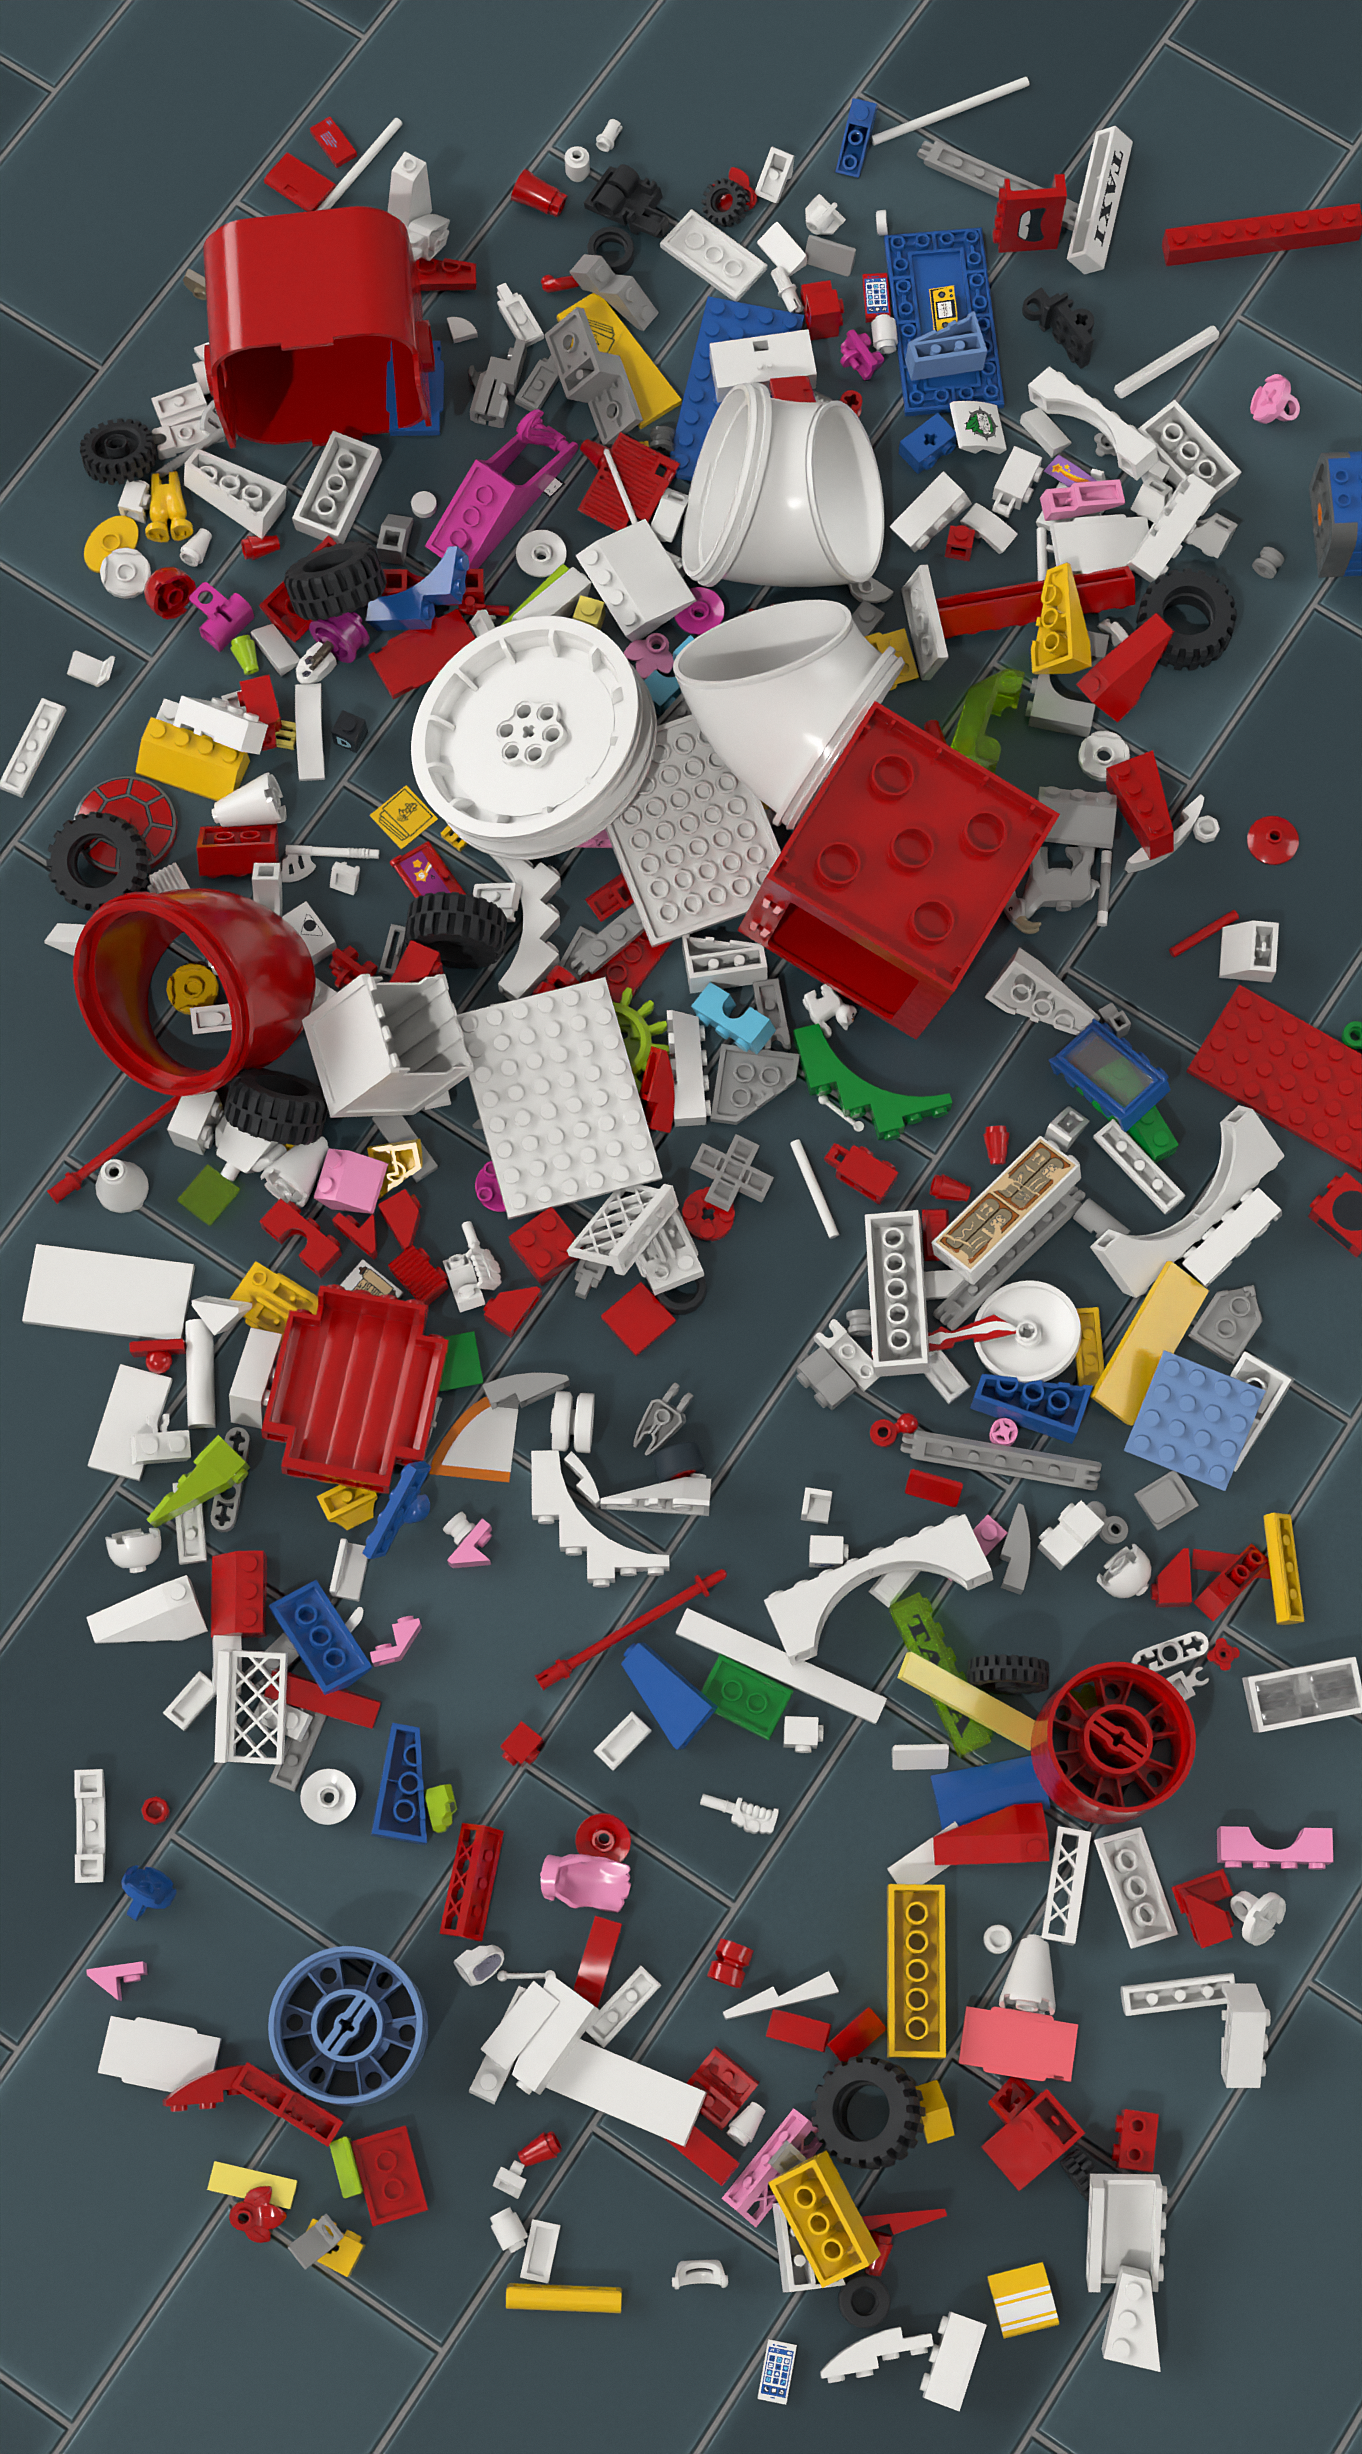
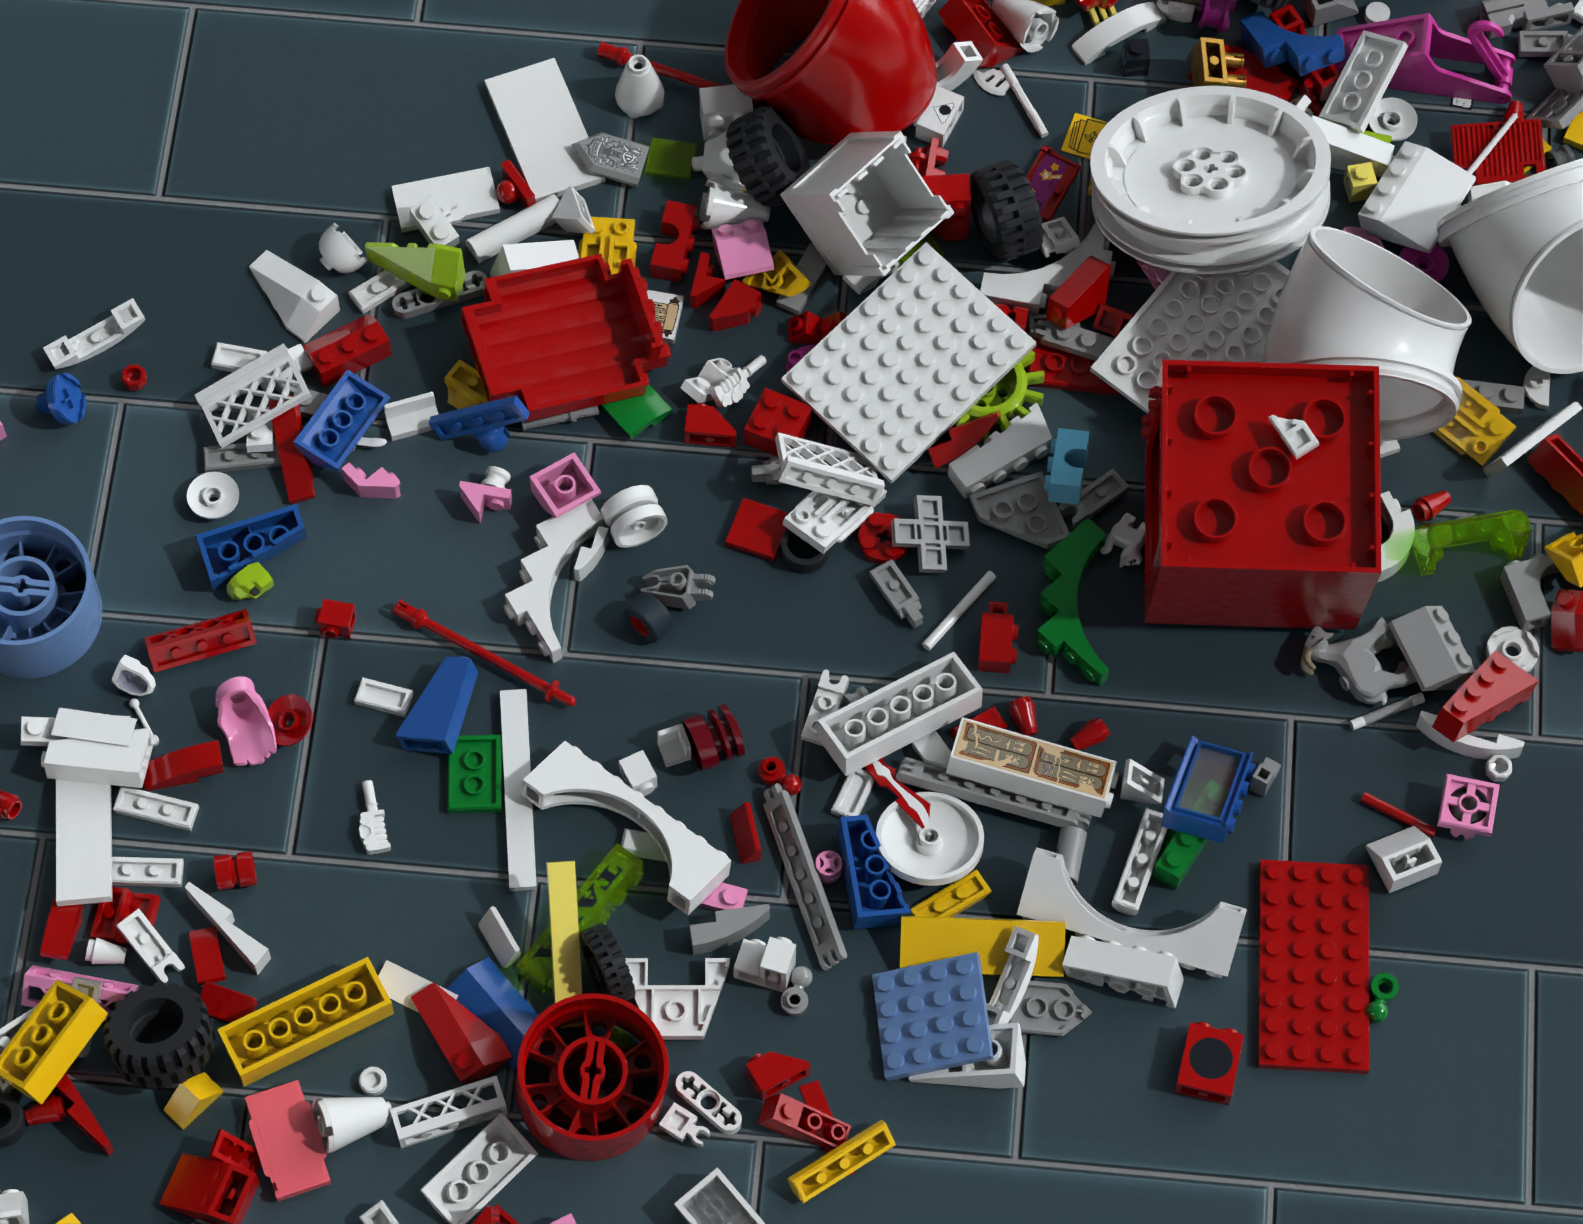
camera: 60 degrees right, 10 degrees down
(178, 1246) = (613, 157): none -> light grey tile
(344, 878) = (1006, 118): white tile -> none
(405, 673) = (1210, 64): none -> pearl gold brick
(419, 1275) = (694, 343): red brick -> none
(464, 1160) = (811, 328): none -> red slope
(479, 1443) = (602, 459): white sticker -> none
(502, 554) = (1363, 81): none -> white plate
(509, 1469) = (563, 486): none -> bright pink slope
(524, 1387) = (643, 468): light grey slope -> none
(571, 913) = (1080, 294): none -> red slope
(677, 1496) = (618, 631): white wedge -> none
(683, 2044) = (147, 872): none -> white tile
(722, 963) = (1112, 434): white wedge -> none
(766, 2079) = (149, 945): none -> white plate
(770, 1231) = (898, 592): none -> light grey hinge
(802, 1733) = (466, 831): white brick -> none
(825, 1378) = (792, 699): light grey brick -> none
(832, 1462) = (718, 735): none -> dark red wheel
(858, 1126) = (1039, 619): white hinge -> none
(897, 808) = (1295, 435): none -> white tile
(1036, 992) = (1250, 698): white wedge -> none
(1072, 1632) = (679, 1010): none -> white wing
(1126, 1573) = (757, 1028): white cylinder -> none
(1166, 1500) = (848, 1034): light grey piece -> none
(1194, 1332) = (1015, 976): none -> white slope
(1215, 1654) = (727, 1153): red plate -> none
(1233, 875) = (1466, 808): none -> bright pink piece
(1269, 850) = (1520, 840): red dish -> none

